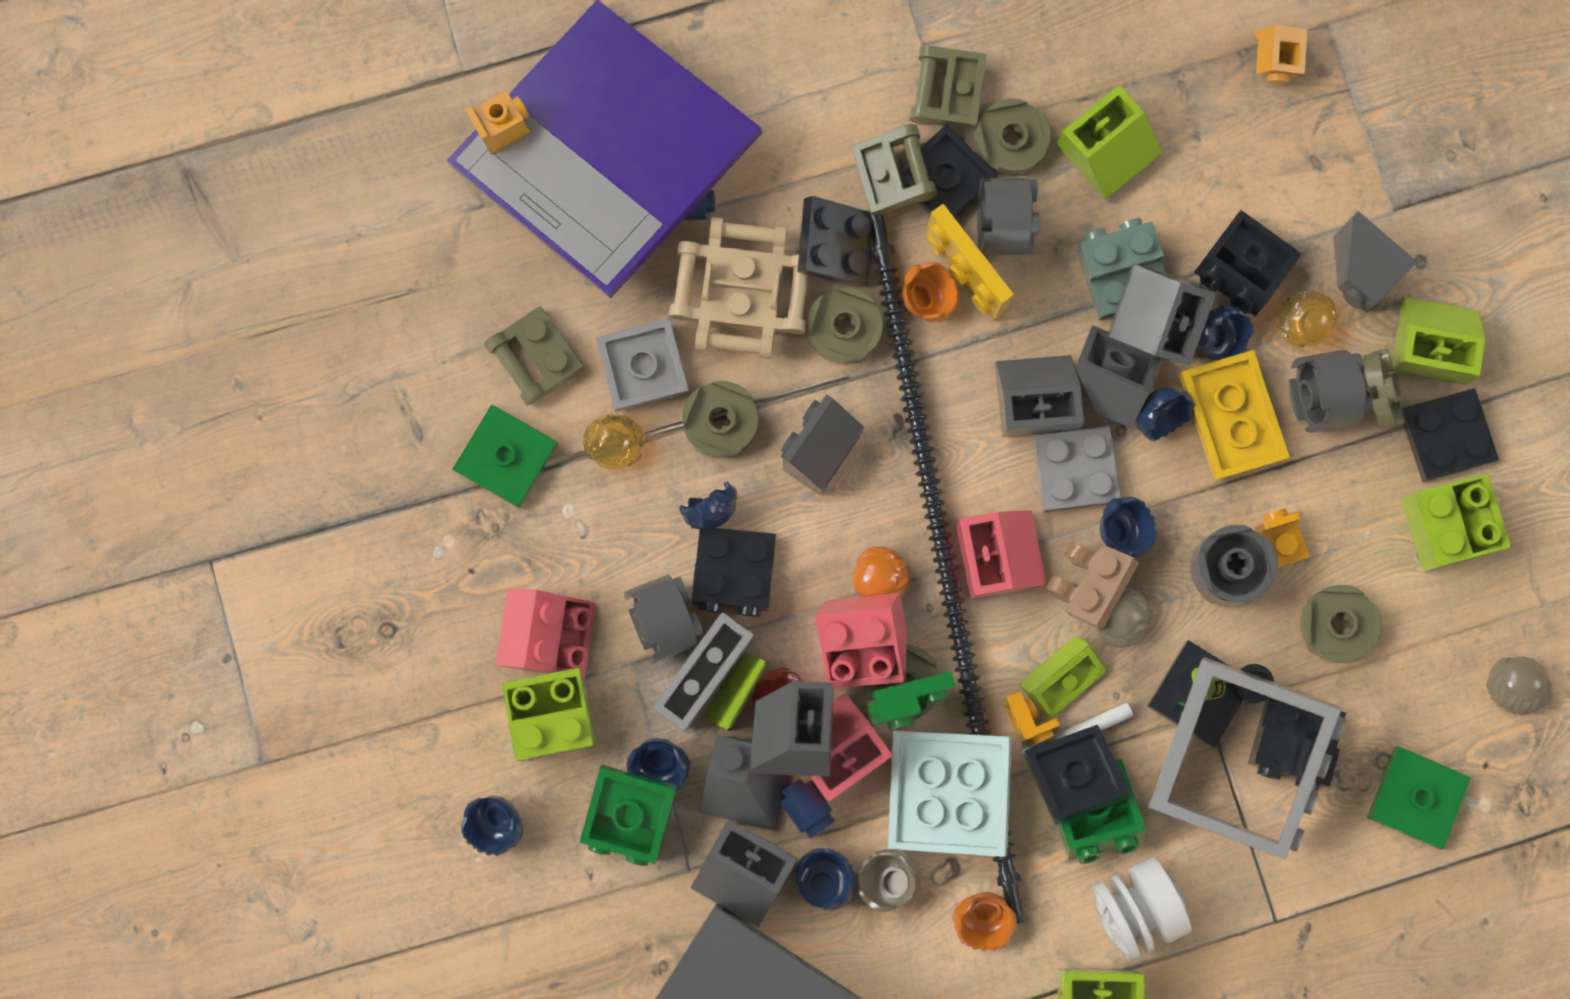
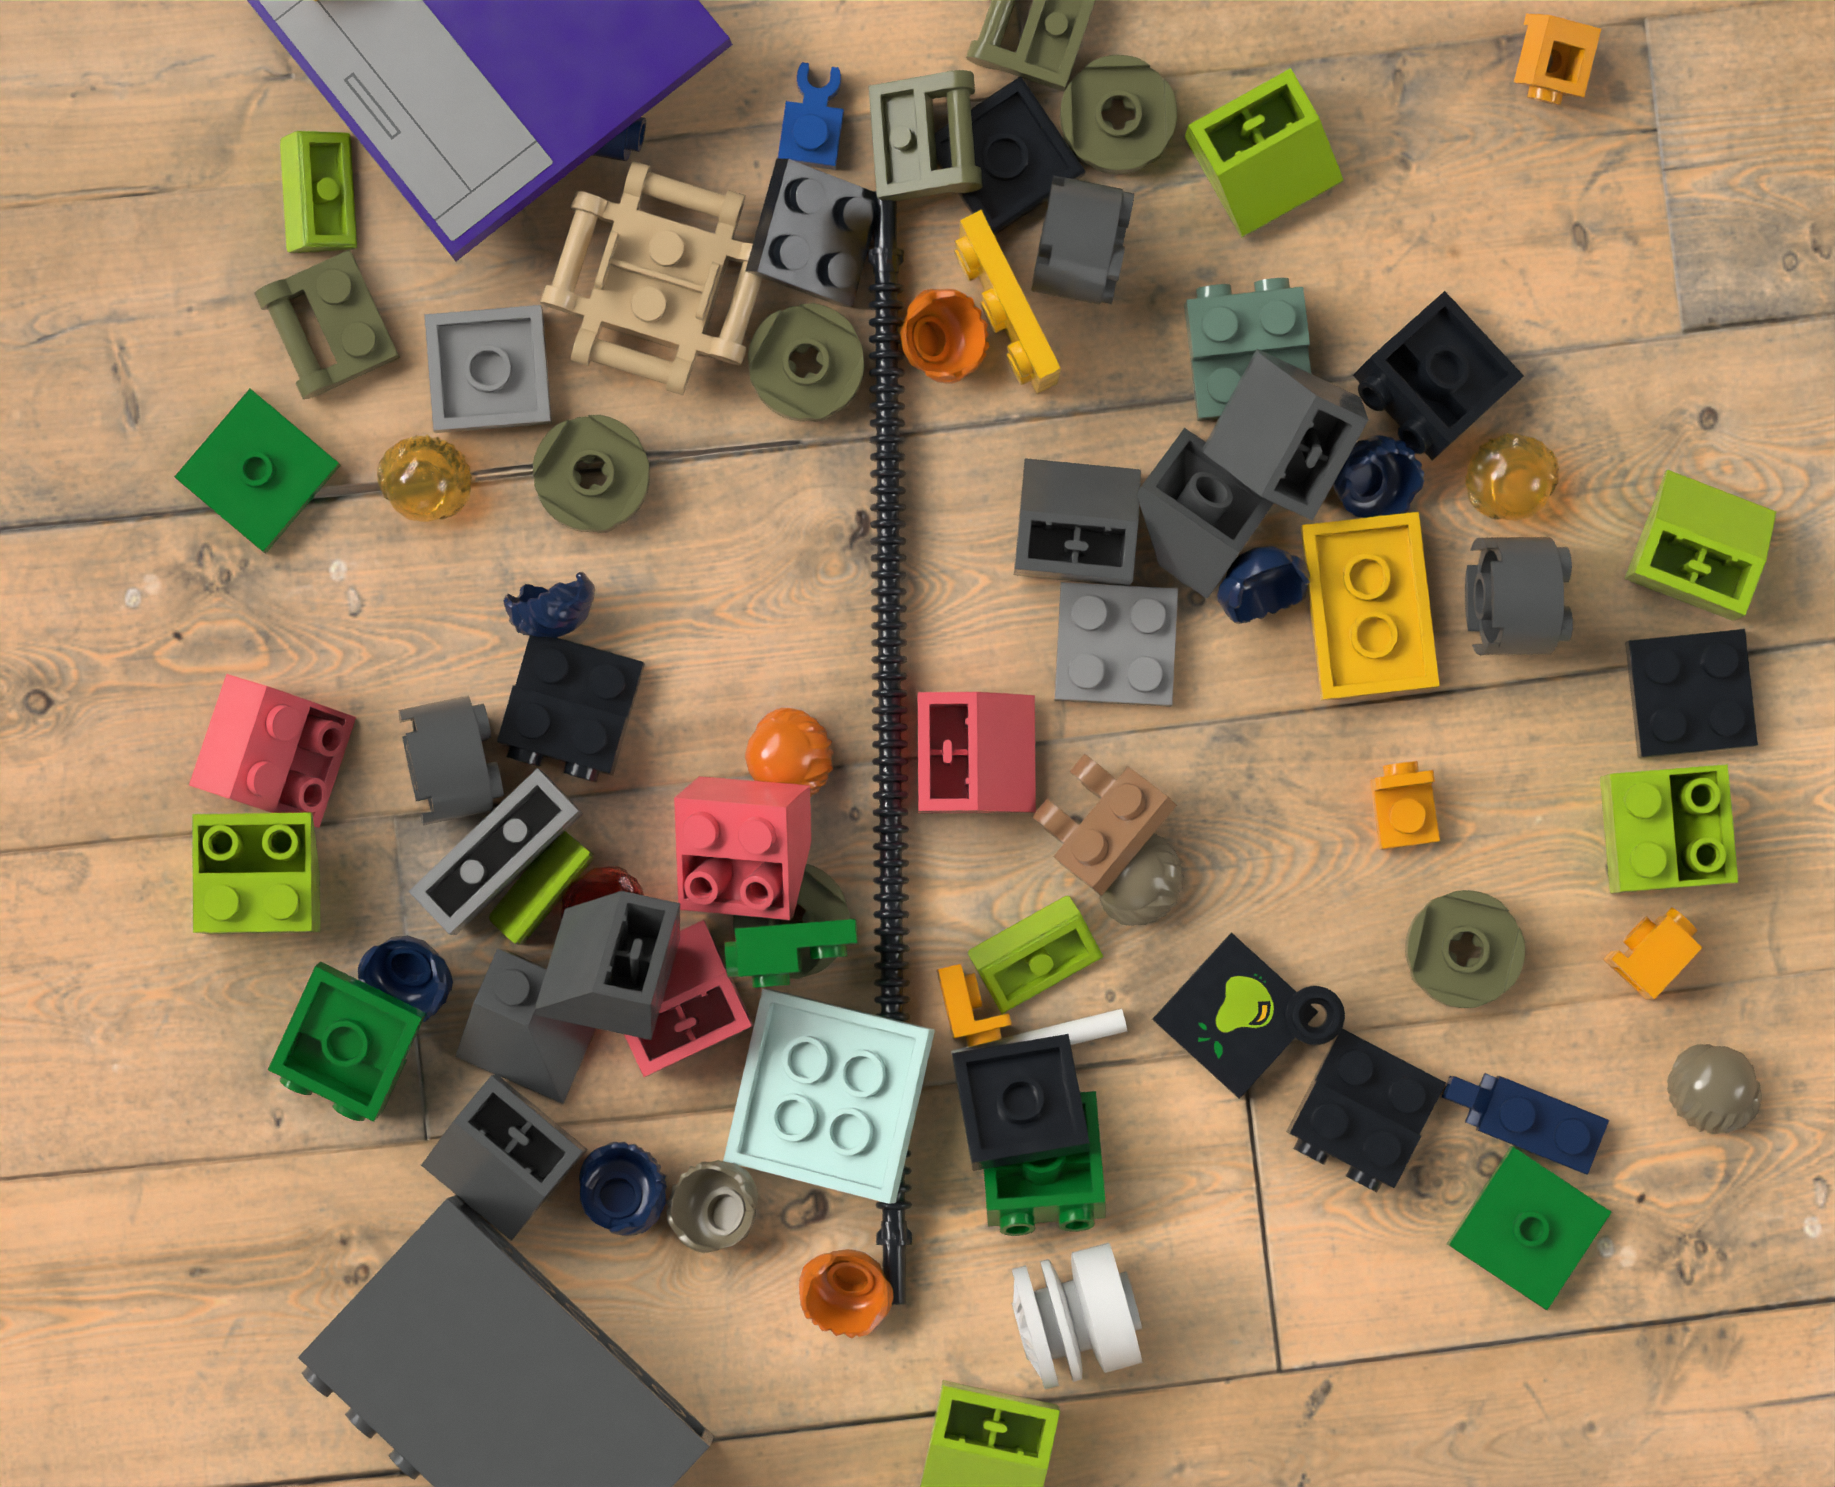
camera: 10 degrees right, 5 degrees up
(491, 825) = (143, 1021): dark blue hair -> none
(513, 273) = (318, 191): none -> lime slope
(807, 807) = (614, 1079): dark blue brick -> none
(820, 177) = (812, 128): none -> blue plate
(821, 445) = (734, 540): dark grey slope -> none
(1128, 526) = (1173, 747): dark blue hair -> none
(1241, 546) = (1342, 810): dark grey brick -> none
(1316, 766) = (1373, 1153): light grey window -> none
(1367, 262) = (1616, 412): dark grey slope -> none
(1384, 388) = (1600, 607): olive plate -> none
(1405, 727) = (1530, 1120): none -> dark blue hinge
(1463, 604) = (1655, 953): none -> light orange brick

